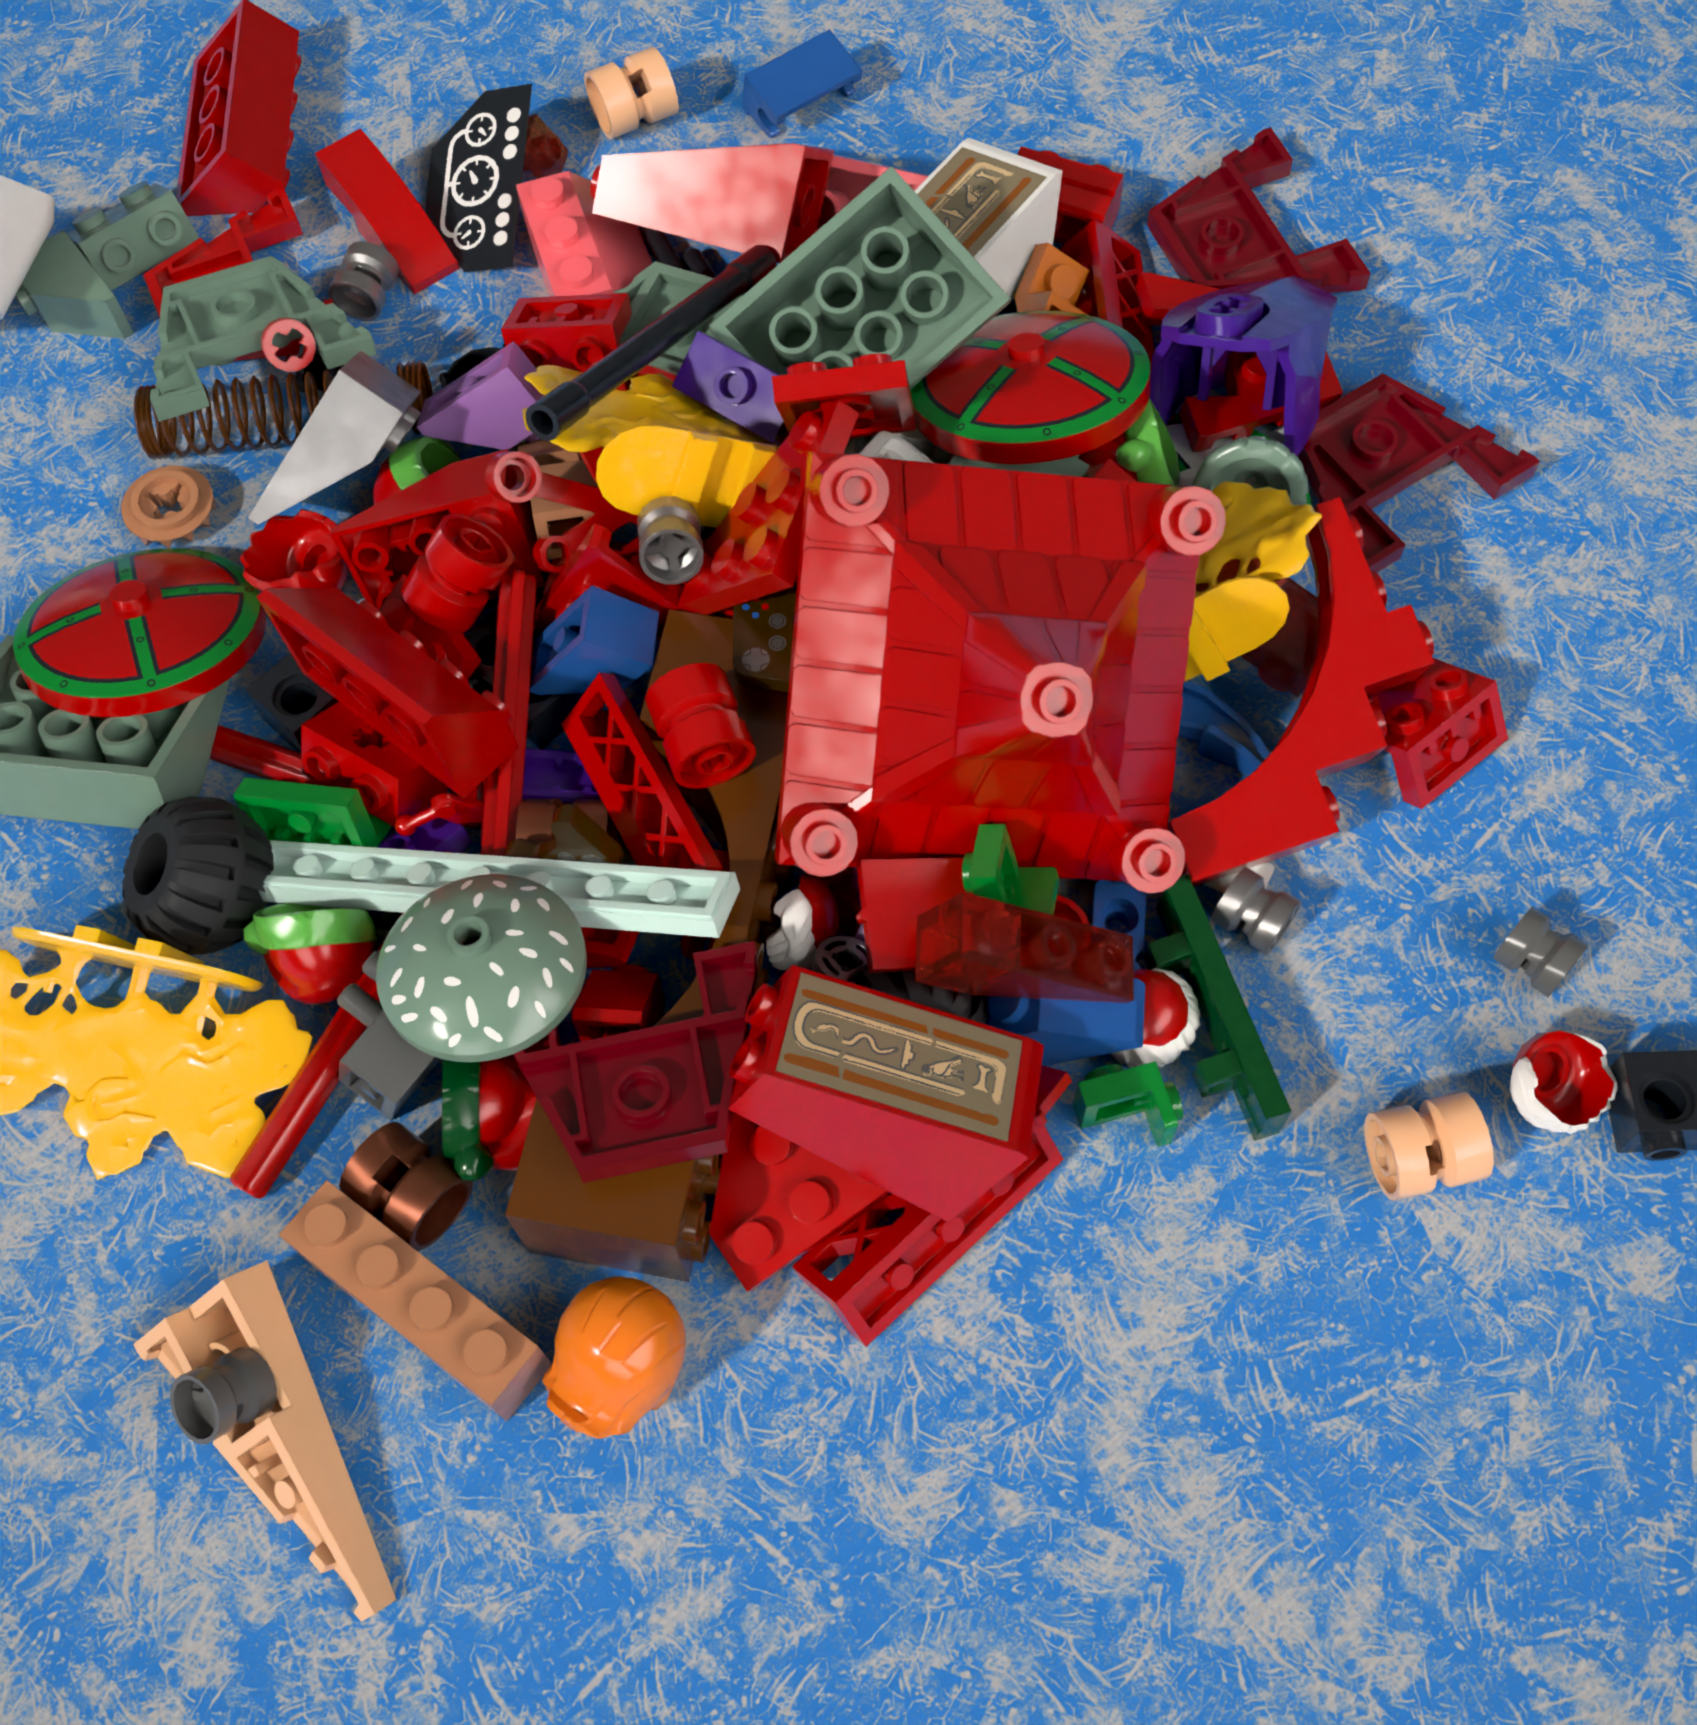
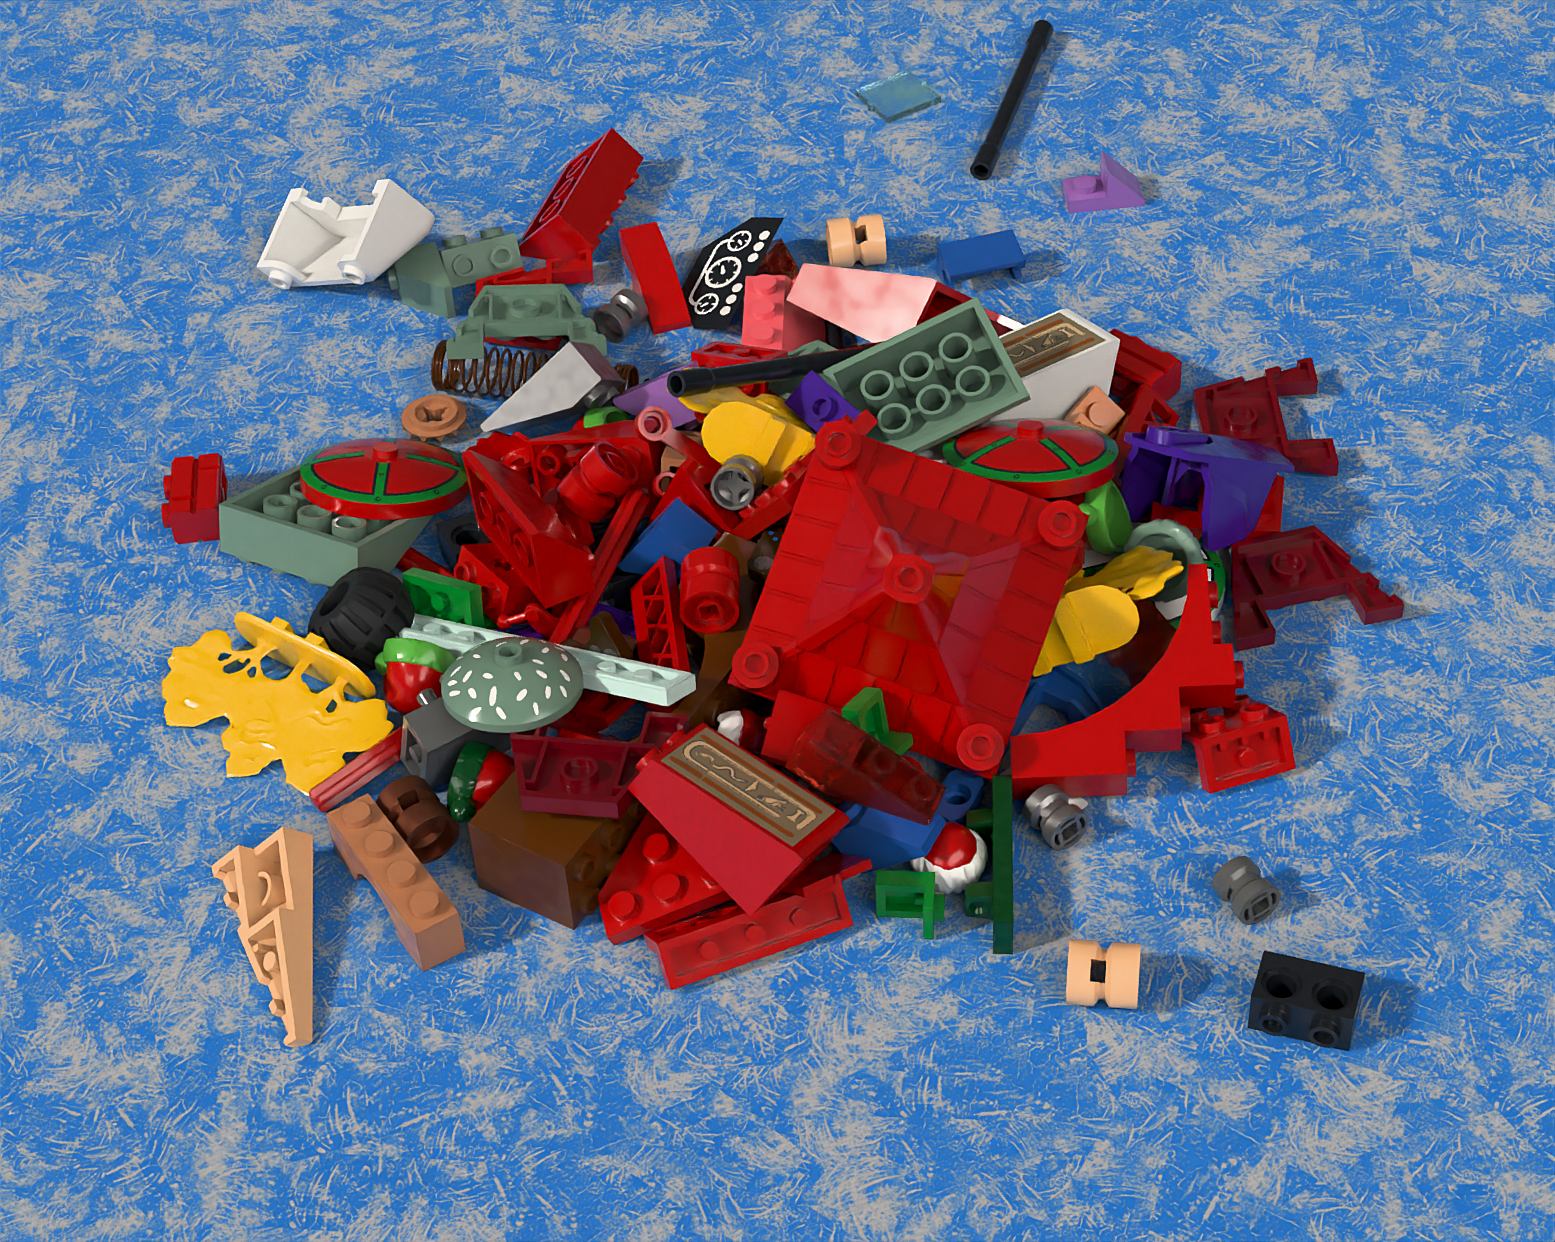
camera: 20 degrees right, 20 degrees down
(215, 1398) = (253, 890): dark grey wheel -> none
(292, 362) = (550, 322): bush -> none
(614, 1356) = (506, 935): orange hair -> none
(871, 386) = (896, 409): red plate -> none
(1562, 1081) = (1218, 964): red hair -> none

